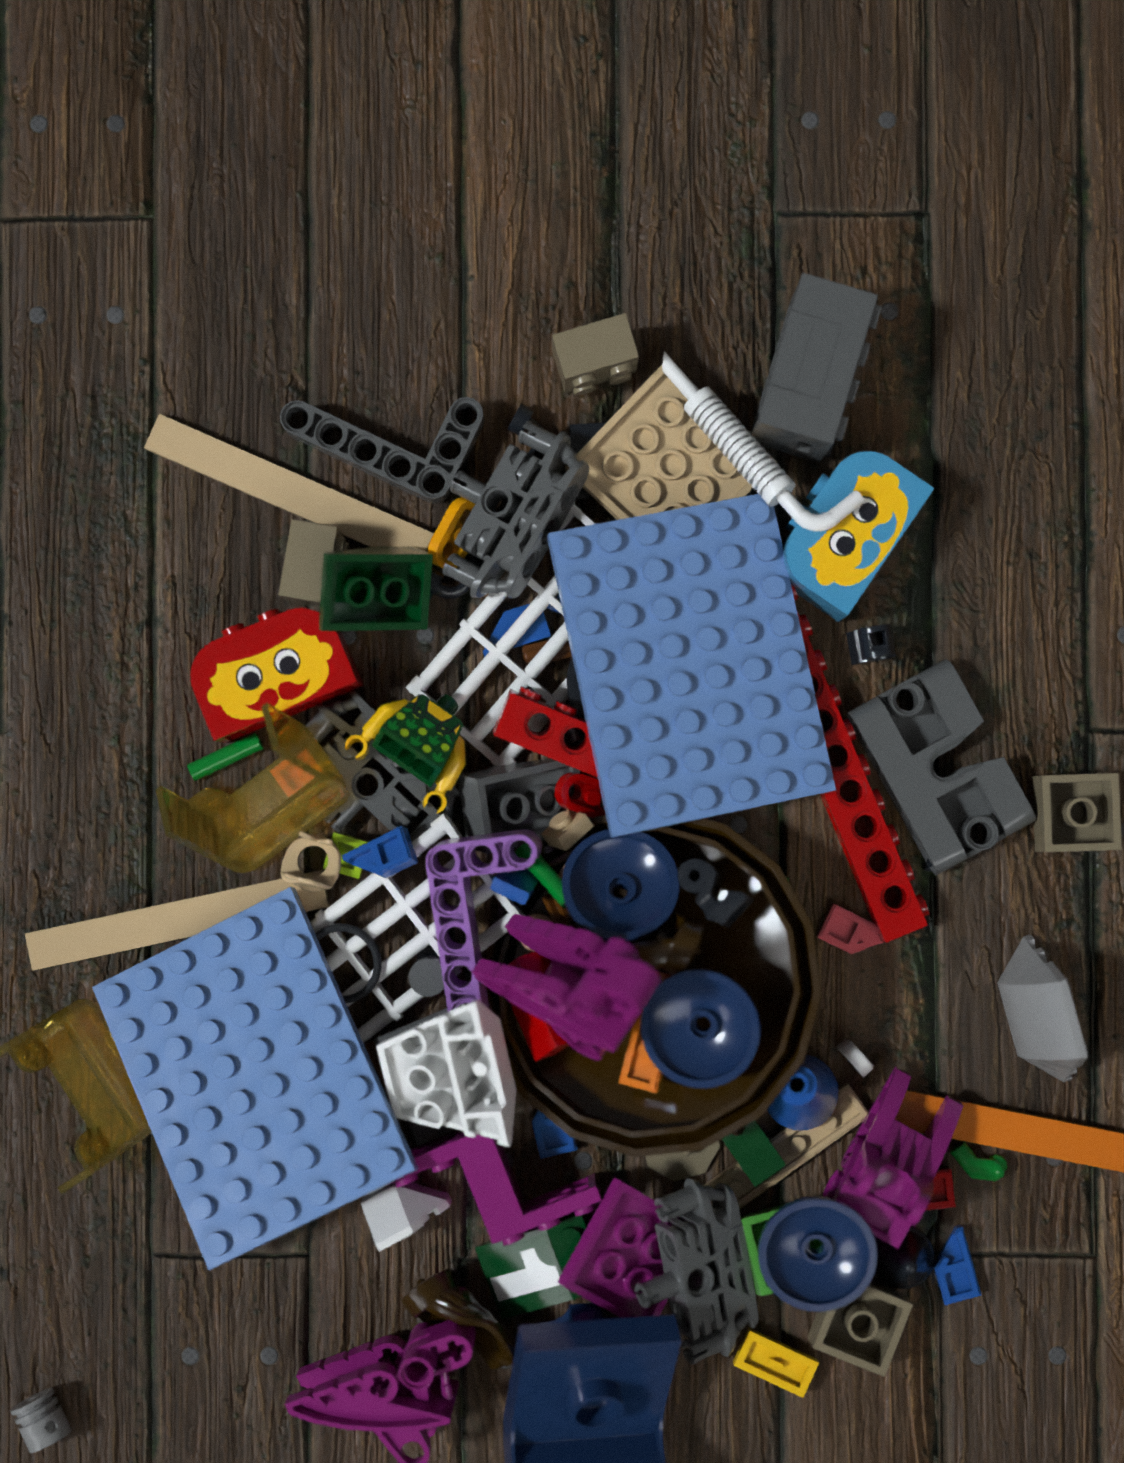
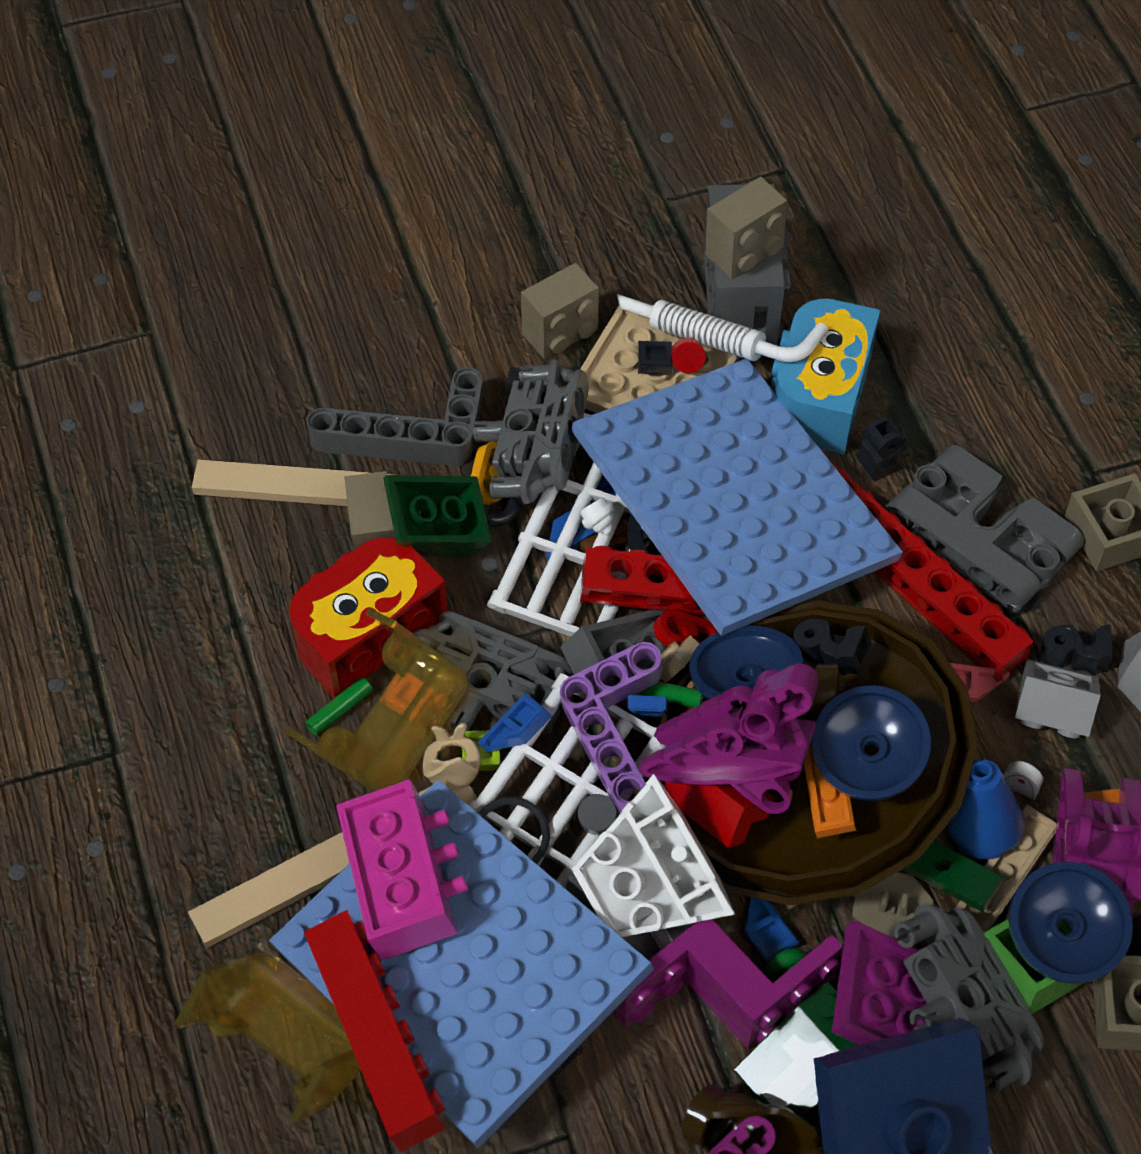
camera: 20 degrees left, 30 degrees down
(151, 1136) = (374, 1031): none -> red brick
(217, 988) = (399, 869): none -> dark pink piece
(401, 1211) = (647, 1046): white slope -> none
(420, 739) = (516, 618): torso -> none
(544, 637) = (598, 516): none -> white plate
(555, 1171) = (782, 963): none -> green piece
(675, 451) = (654, 357): none -> black tile
(709, 466) = (688, 355): none -> red tile
(775, 1362) = (1078, 1079): yellow plate -> none
(812, 372) = (746, 227): none -> dark tan brick
(929, 984) = (1057, 699): none -> light grey slope
(961, 929) = (1064, 647): none -> black leg

